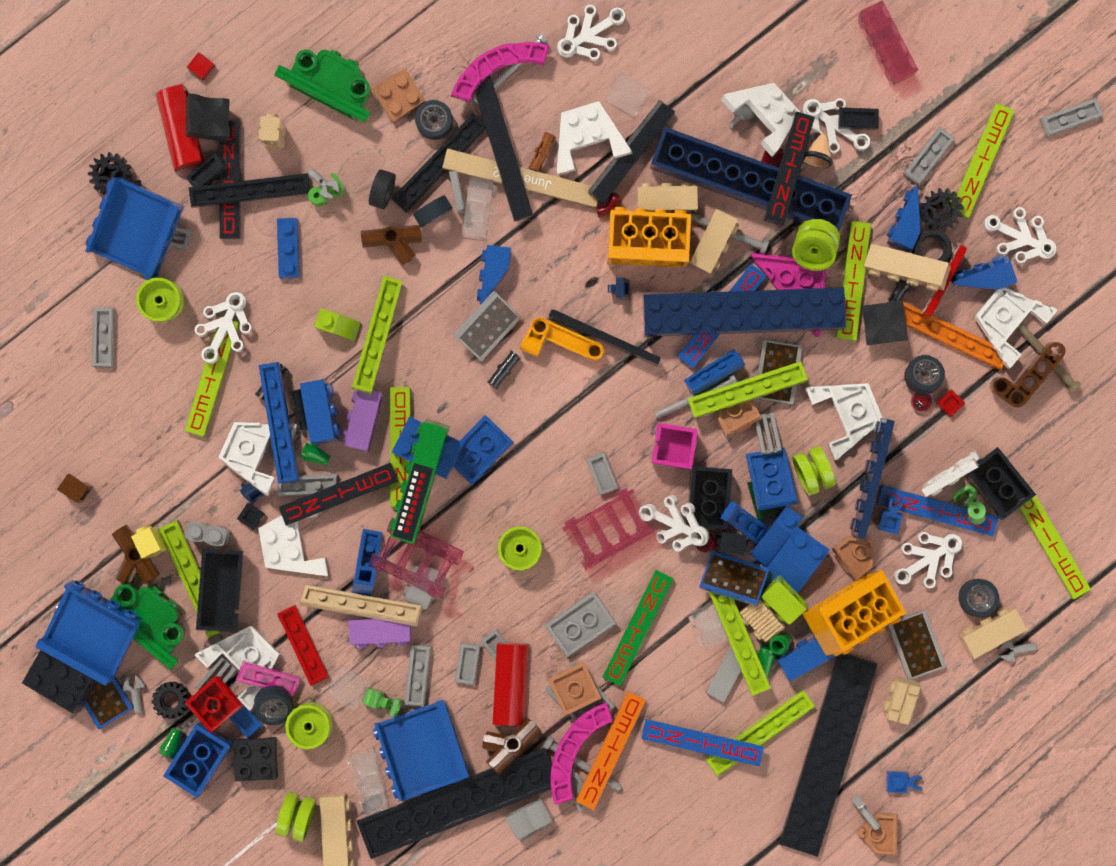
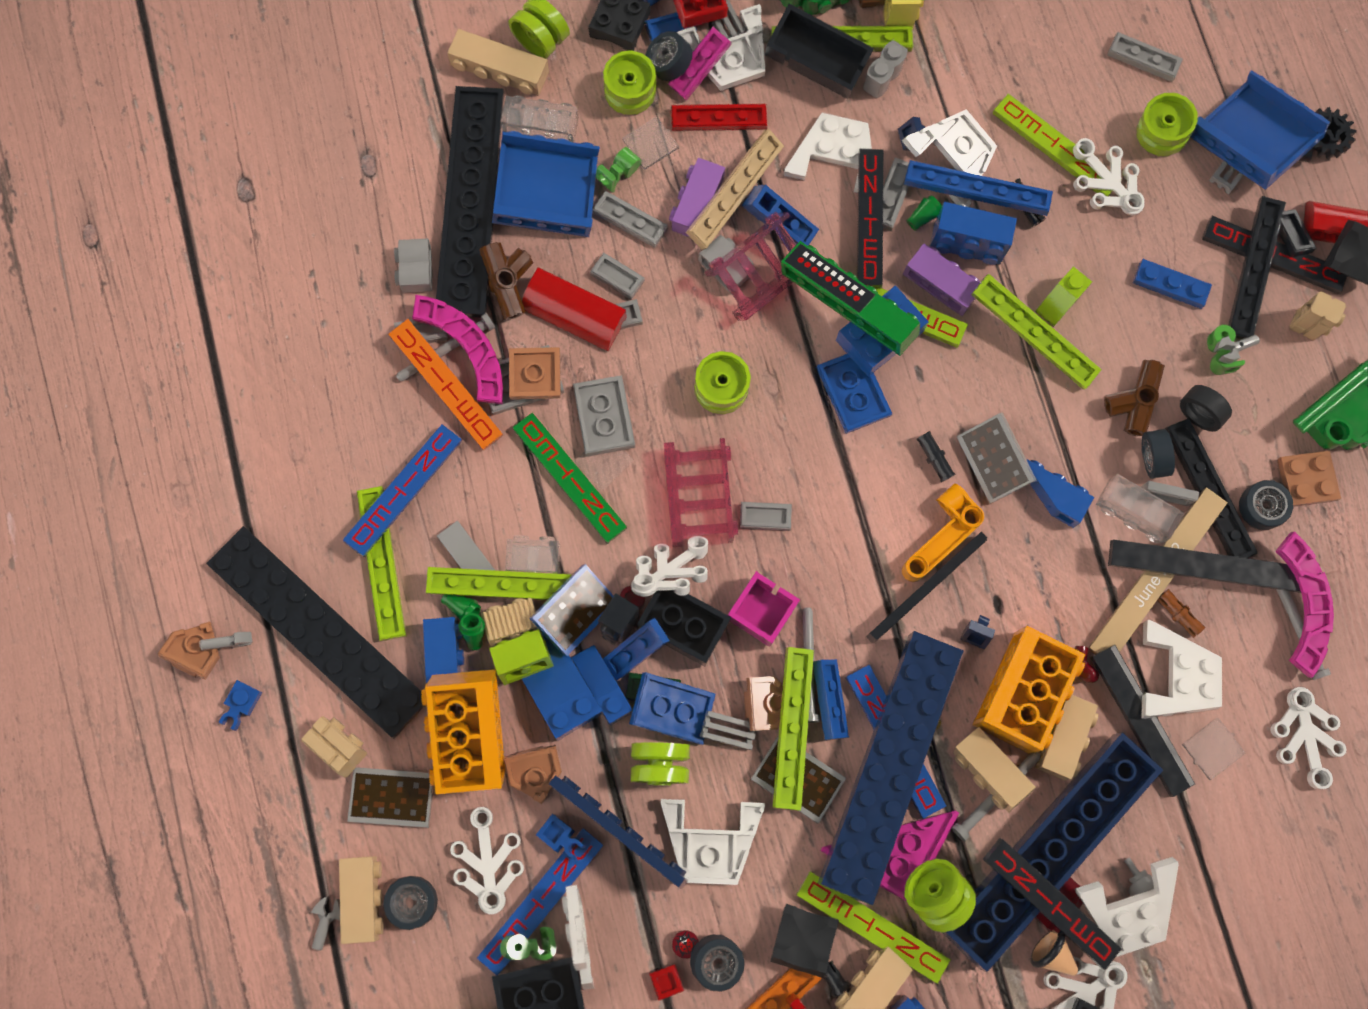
camera: 110 degrees right, 10 degrees down
(250, 516) = (884, 122): black tile -> none

